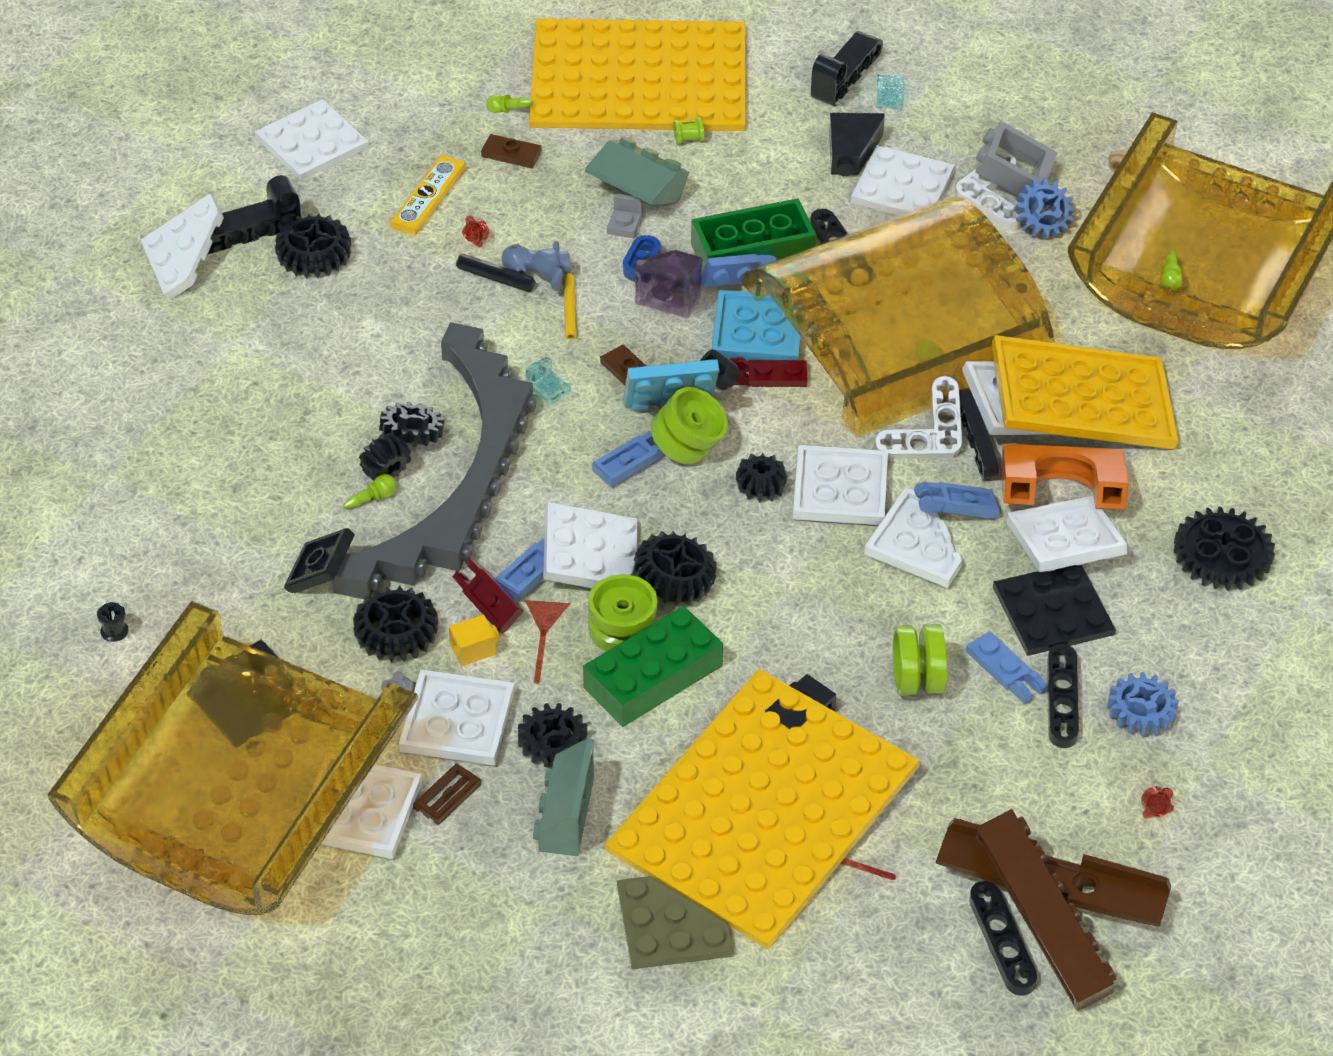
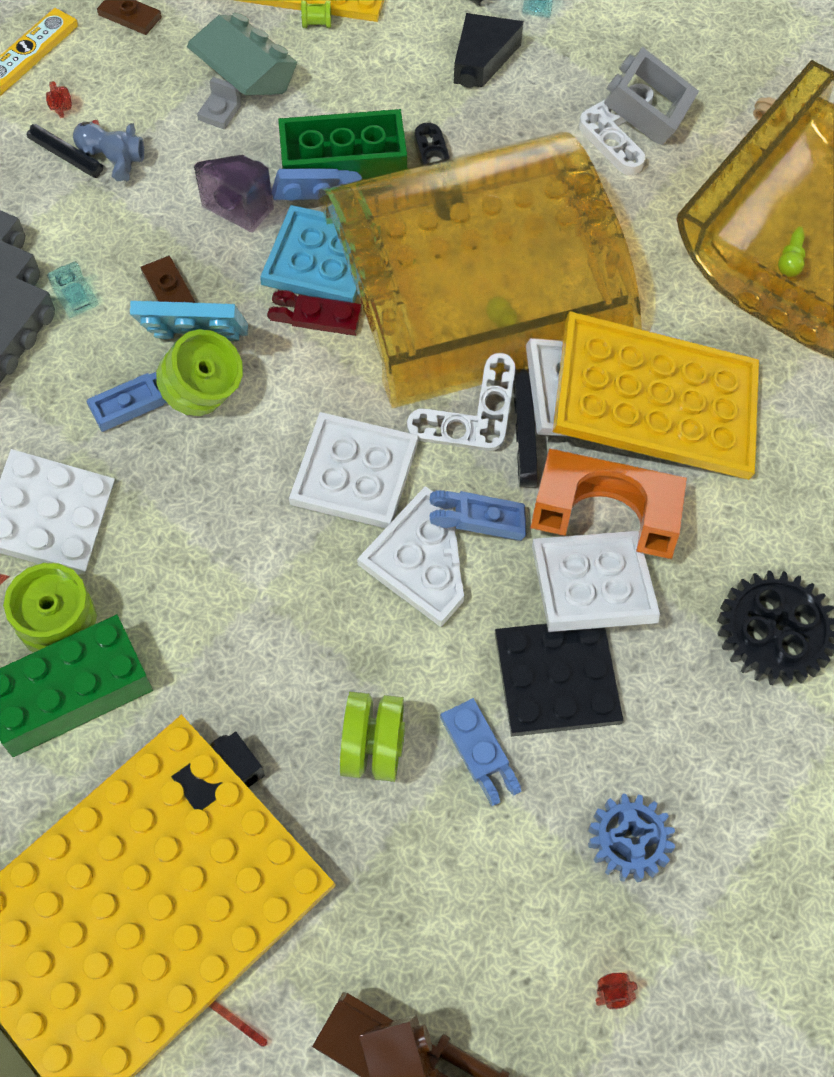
camera: 10 degrees right, 15 degrees up
(569, 306) = (130, 201): yellow piece -> none
(638, 251) = (218, 146): blue plate -> none
(693, 565) = (123, 536): black gear -> none
(728, 370) = (259, 304): black plate -> none
(761, 477) = (258, 456): black gear -> none
(901, 181) = (524, 102): white plate -> none
(1032, 202) = (661, 144): medium blue gear -> none
(1064, 696) = (540, 805): black beam -> none

